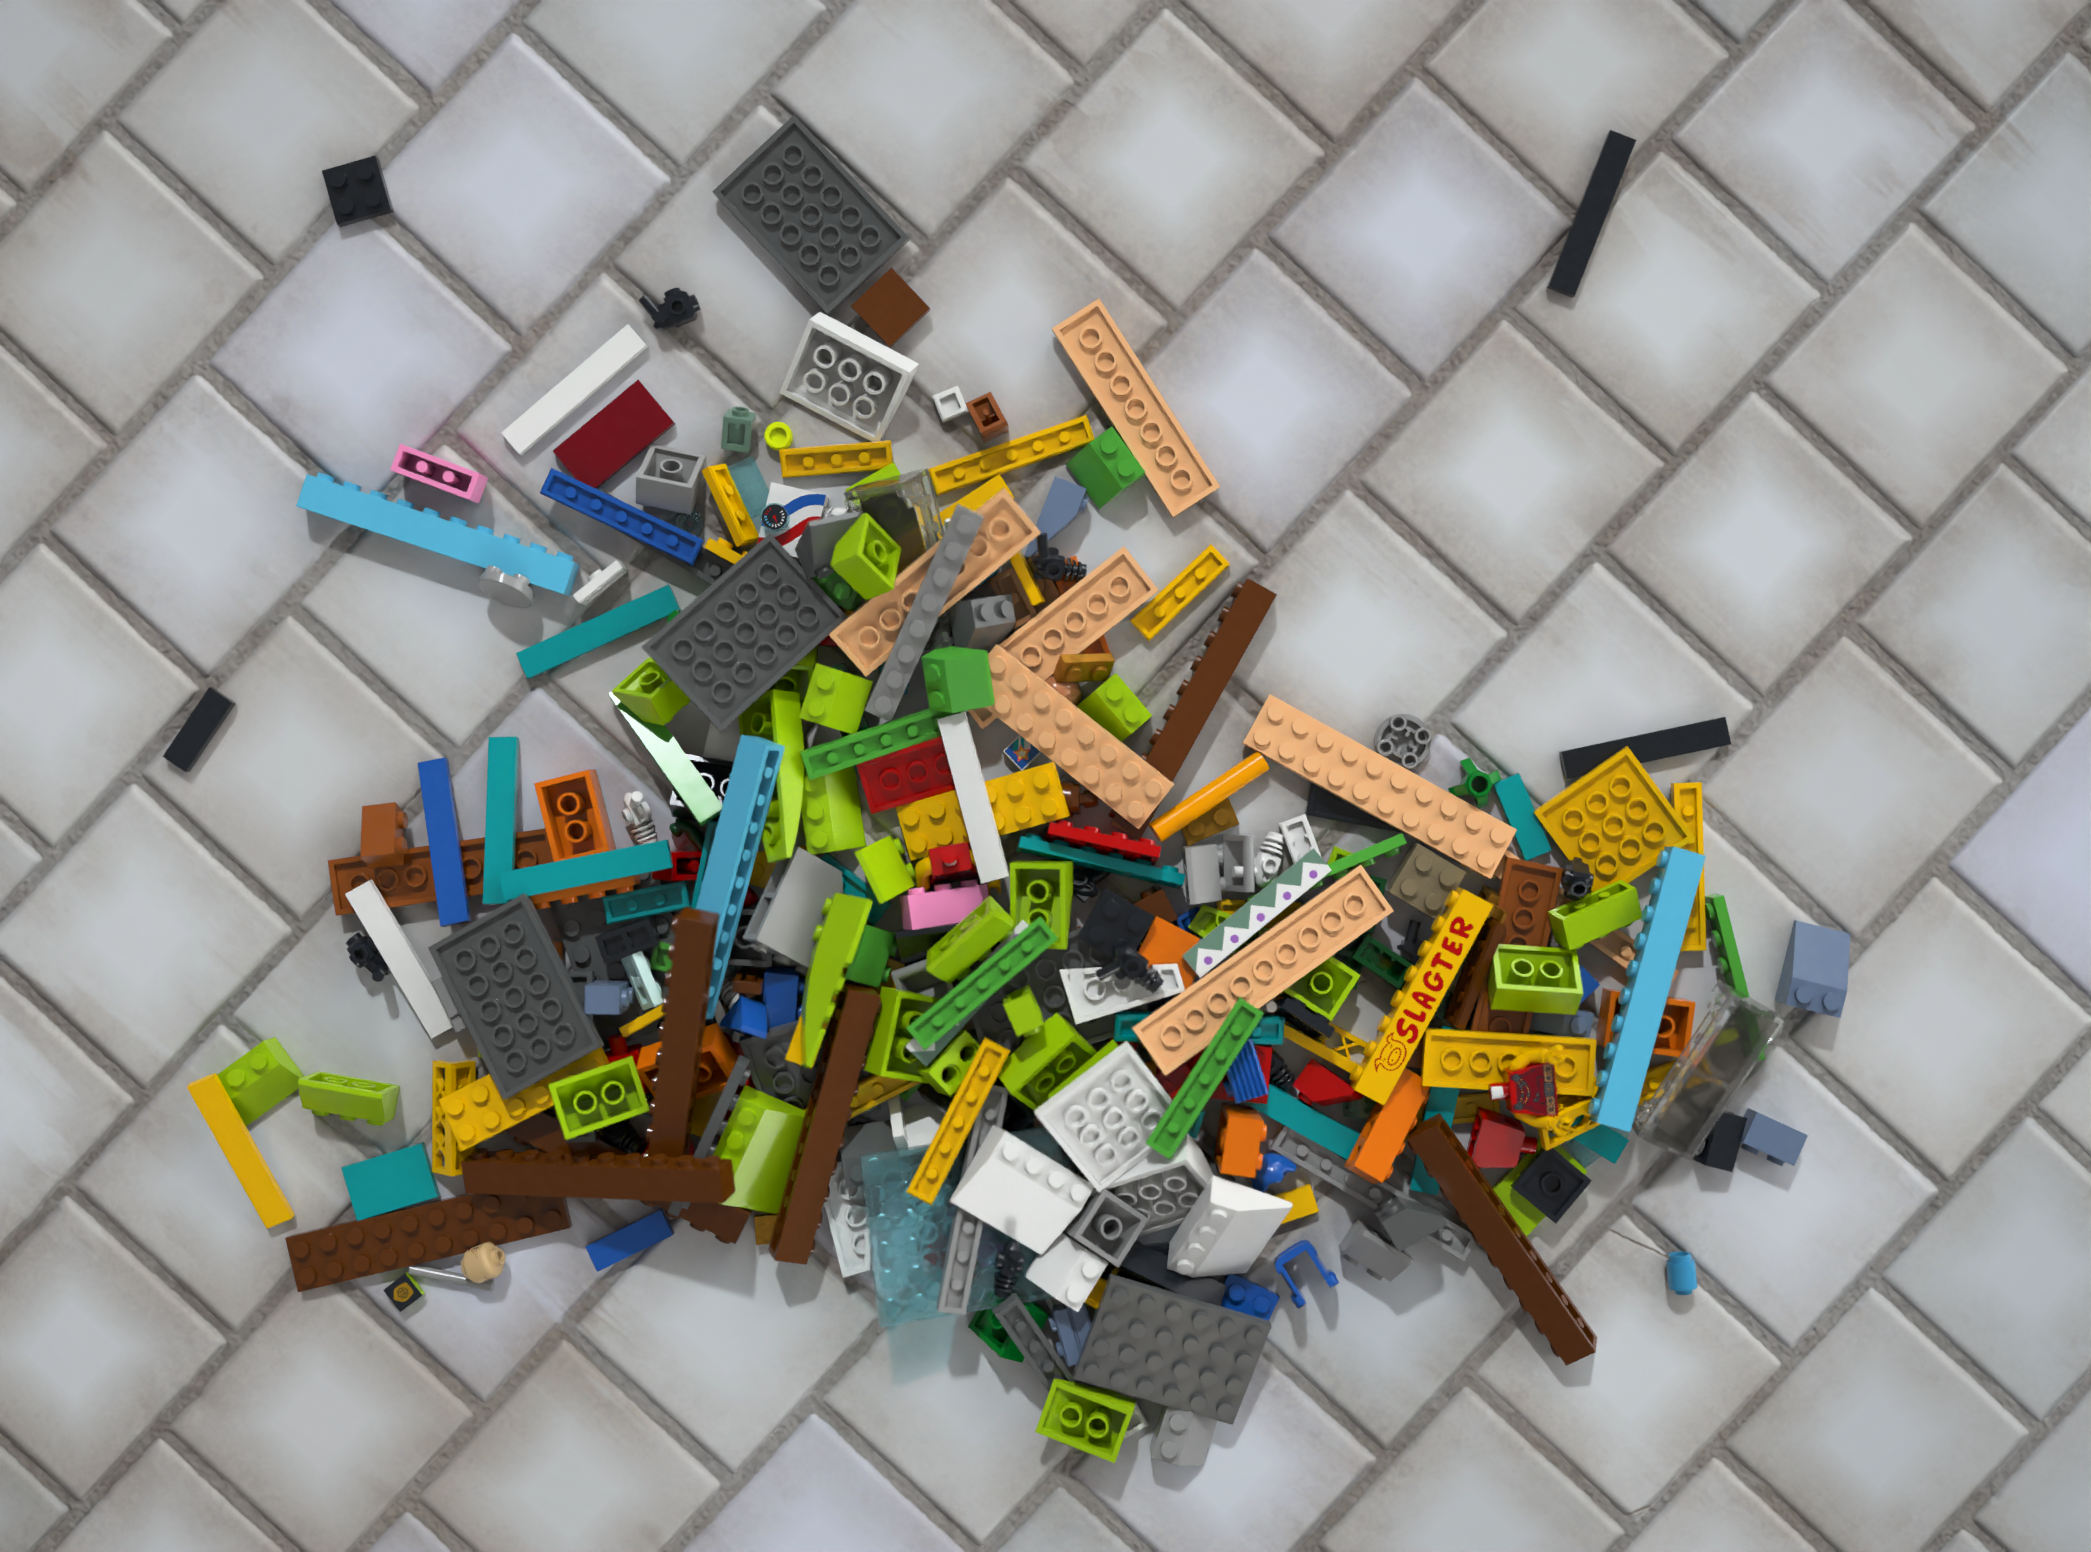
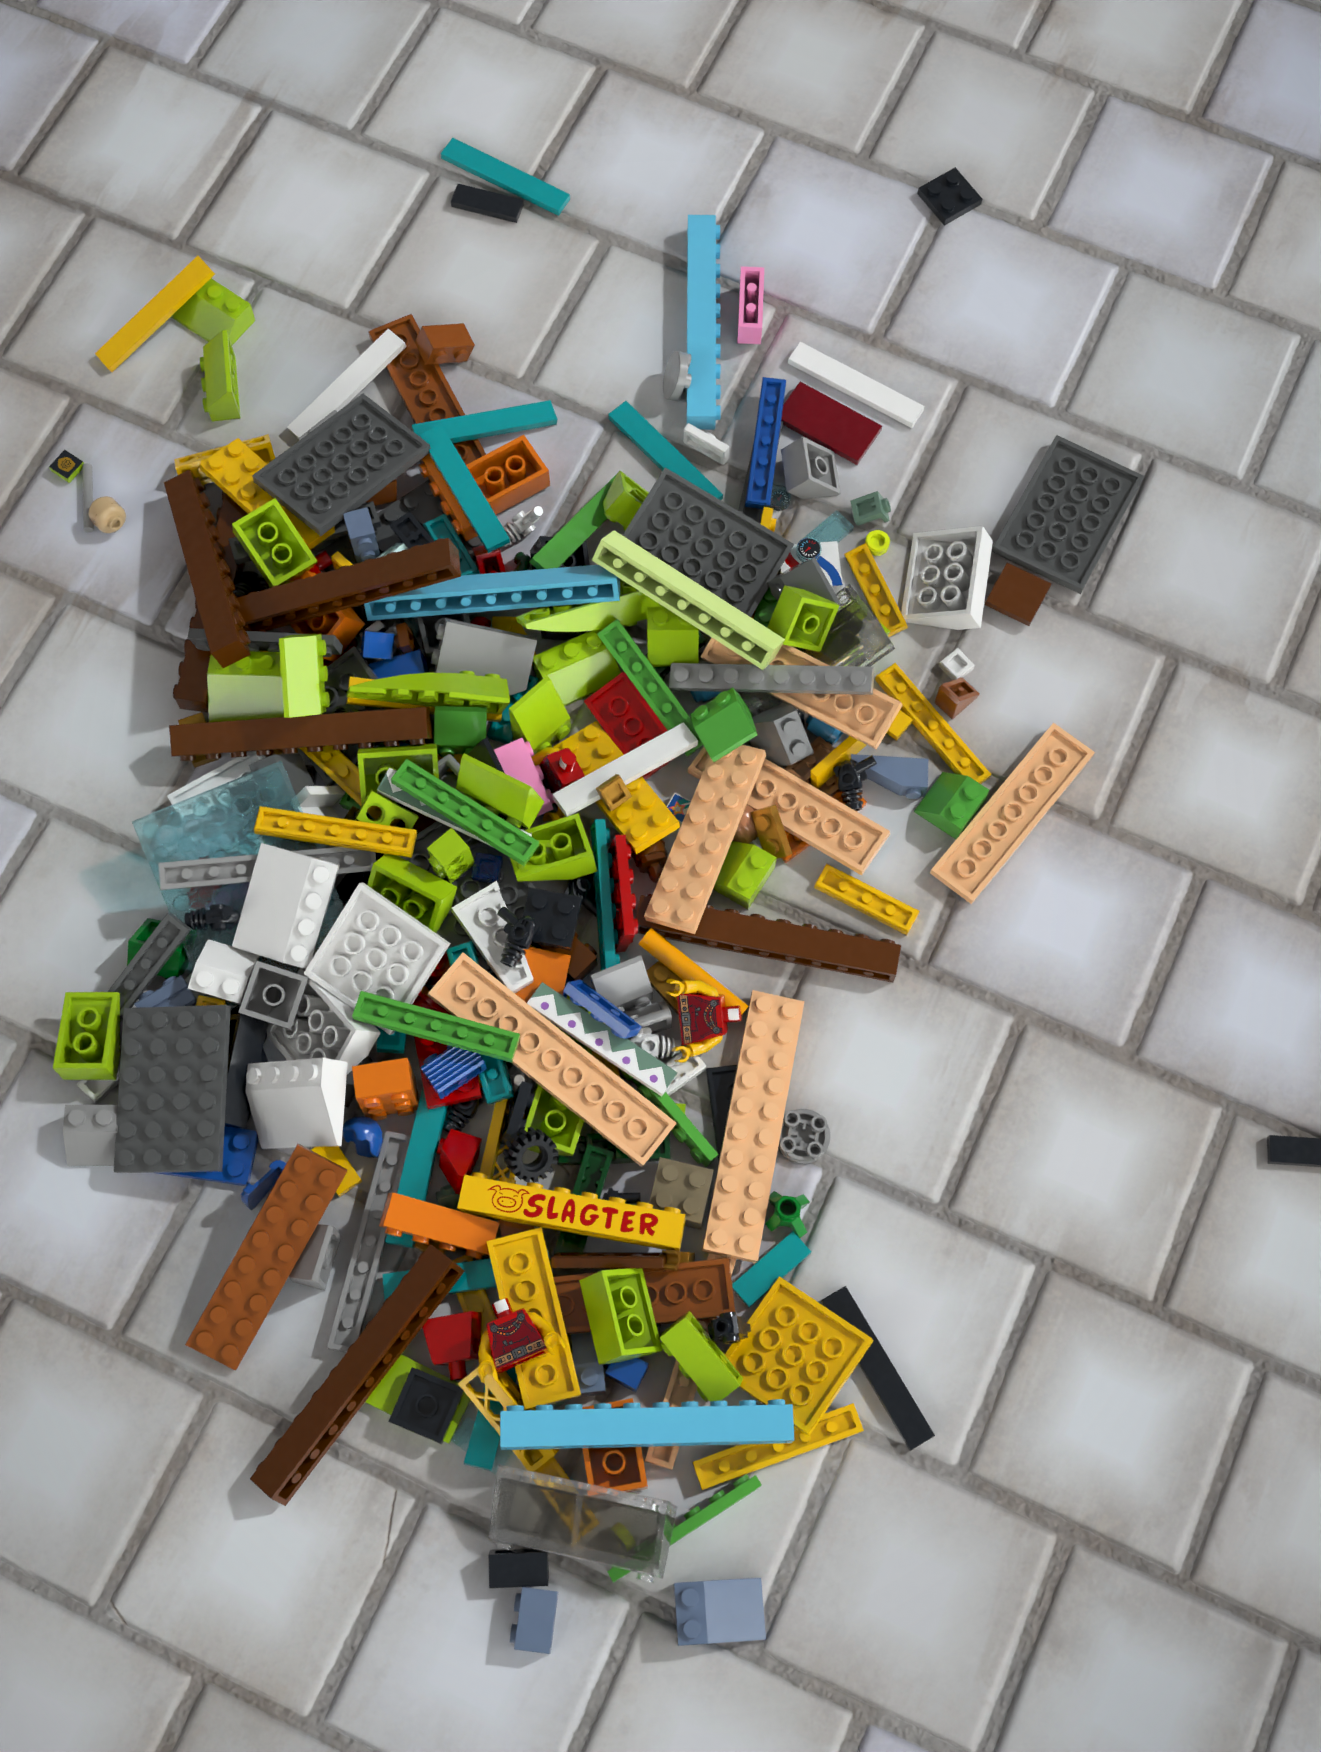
camera: 75 degrees right, 20 degrees down
(168, 698) = (505, 176): none -> teal tile
(365, 953) = (341, 359): black piece -> none
(390, 1181) = (158, 431): teal tile -> none
(419, 1235) = (120, 468): reddish brown plate -> none
(444, 842) = (453, 388): blue tile -> none
(629, 1239) = (155, 622): blue tile -> none
(676, 311) = (949, 437): black piece -> none
(730, 504) = (808, 517): yellow tile -> none
(772, 1109) = (303, 675): none -> slope
(813, 675) = (688, 599): none -> yellowish green brick
(999, 819) = (613, 792): none -> pearl gold tile
(1040, 974) = (487, 868): none -> clear blue tile
(1229, 904) = (602, 1009): none -> blue plate
(1260, 804) = (701, 1016): none -> torso
(1345, 1022) = (540, 1164): none -> black tyre
(1367, 1298) = (266, 1257): none -> dark orange plate
(1407, 1221) = (351, 1263): dark grey slope -> none
(1681, 1272) = (372, 1572): dark azure brick -> none

